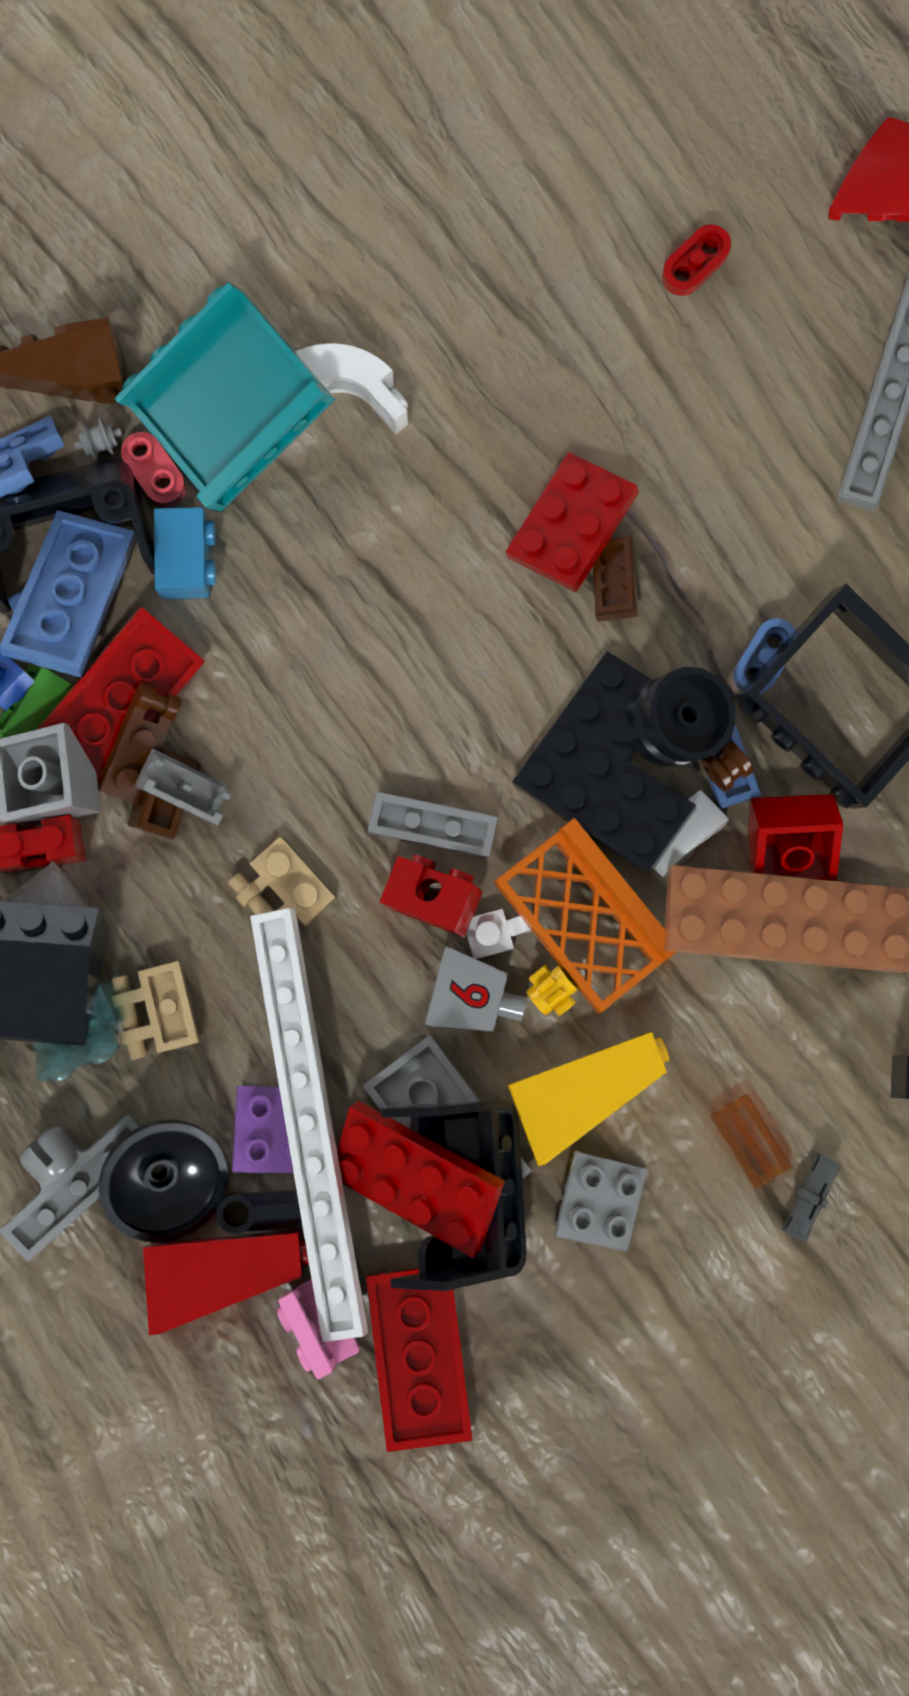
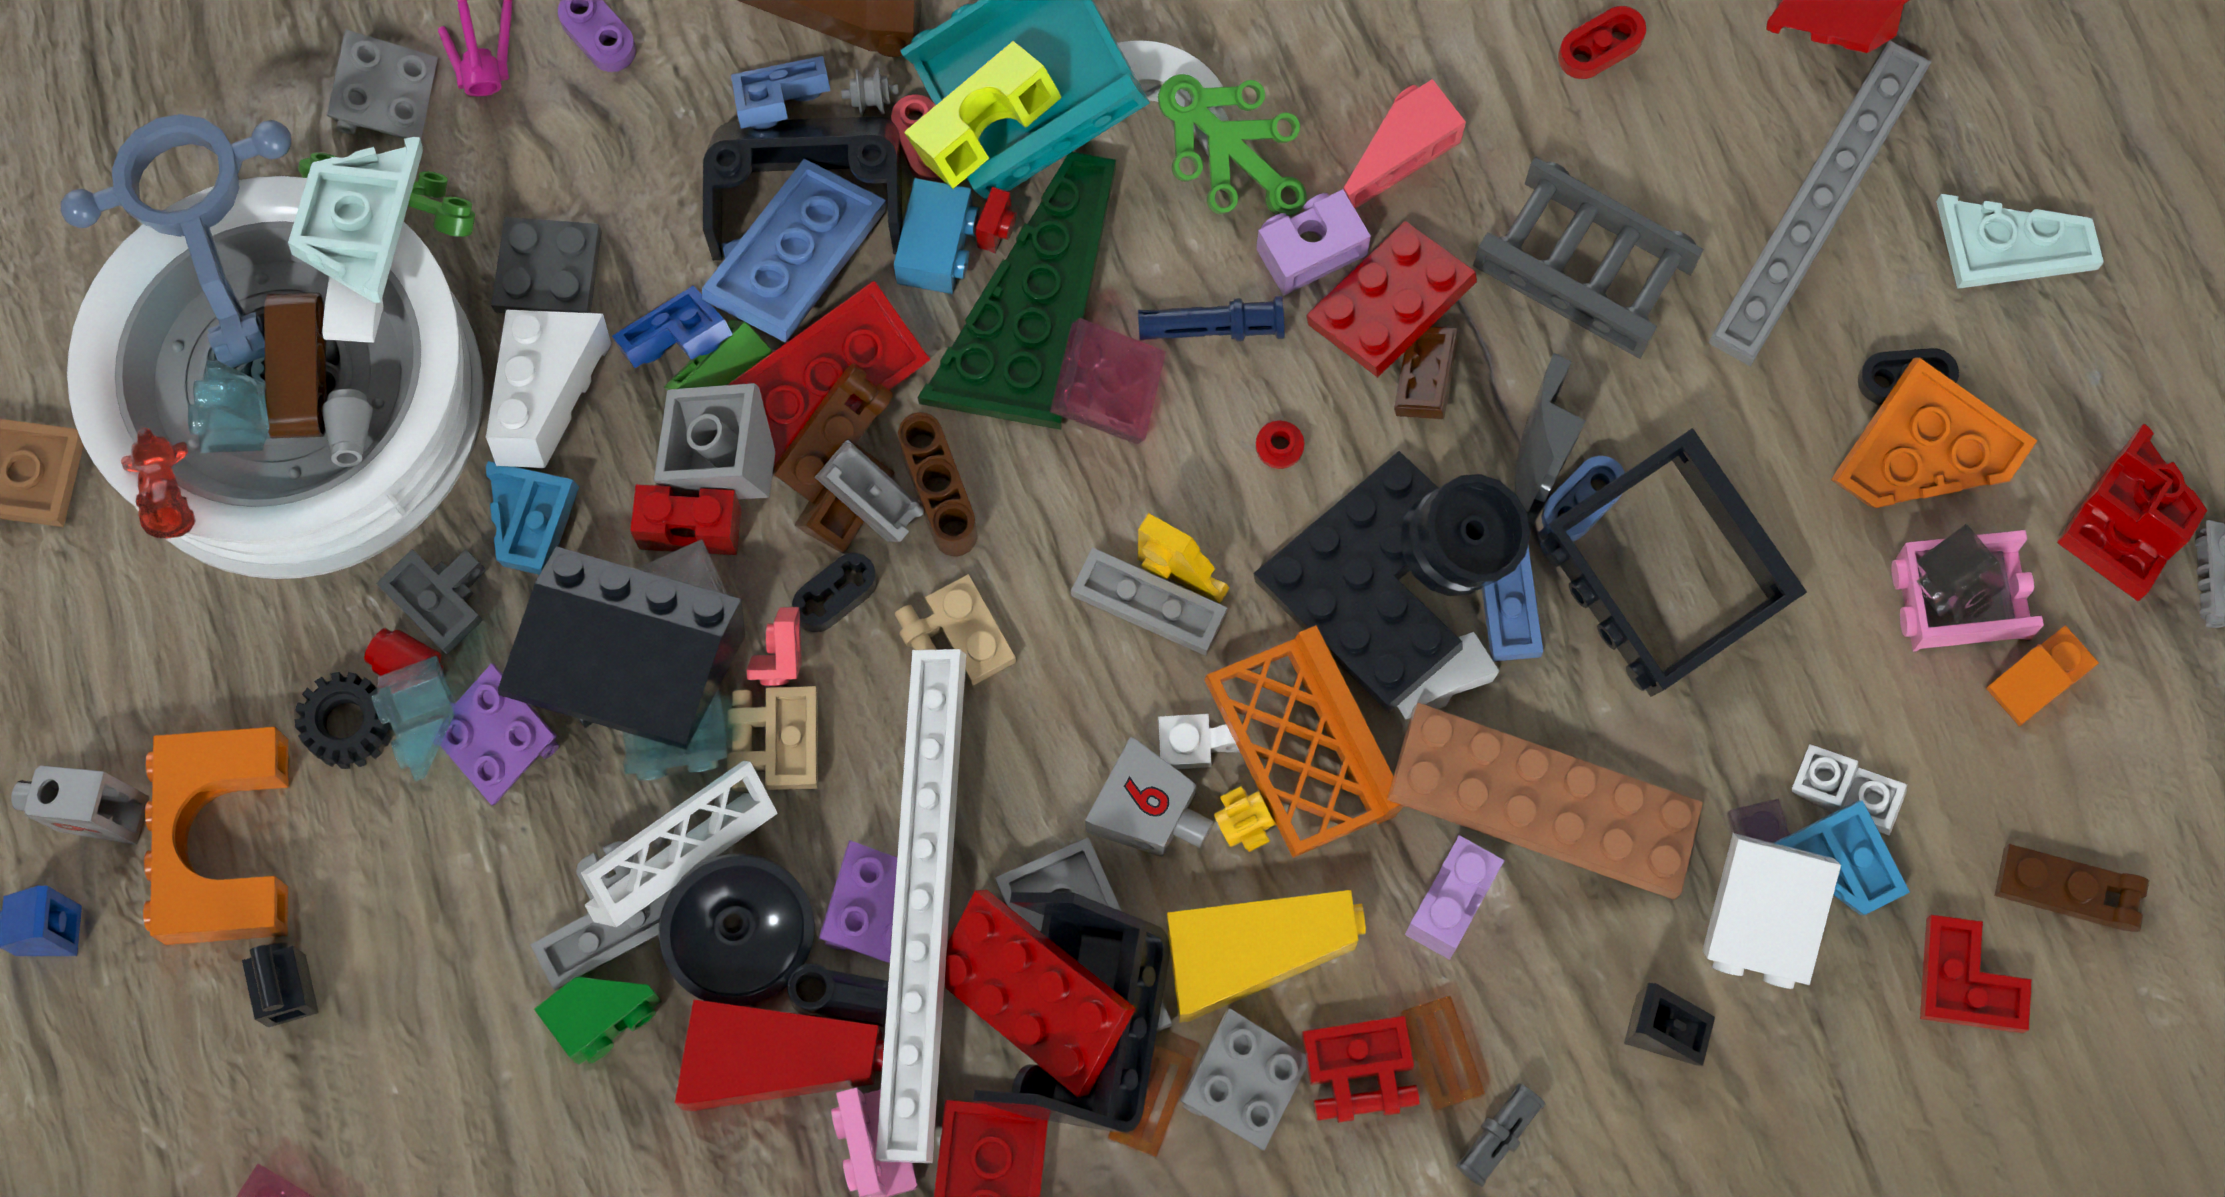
camera: 15 degrees right, 10 degrees down
(62, 1273) = (593, 1012): none -> green slope
(102, 1133) = (664, 870): none -> white fence
(144, 938) = (784, 641): none -> coral bracket
(182, 881) = (827, 584): none -> black beam
(209, 414) = (1005, 87): none -> neon yellow arch
(225, 750) = (931, 463): none -> reddish brown beam
(230, 528) = (995, 221): none -> red plate
(277, 611) = (1020, 325): none -> dark green wing
(356, 647) = (1108, 381): none -> clear pink plate
(406, 417) = (1226, 141): none -> bright green plant
(441, 784) = (1177, 556): none -> yellow wing
(448, 569) = (1236, 319): none -> dark blue pin
(448, 911) = (1142, 699): red brick -> none
(488, 508) = (1300, 262): none -> lavender brick
(504, 679) = (1276, 457): none -> red plate
(548, 1199) = (1134, 1141): none -> clear orange tile
(558, 375) = (1411, 135): none -> coral slope
(686, 1157) = (1359, 1052): none -> red plate
(725, 618) = (1545, 441): none -> dark grey slope
(727, 766) = (1508, 605): reddish brown wheel -> none
(732, 489) = (1587, 302): none -> dark grey fence
(733, 1036) = (1454, 897): none -> lavender brick
(795, 836) = (1574, 707): red slope -> none

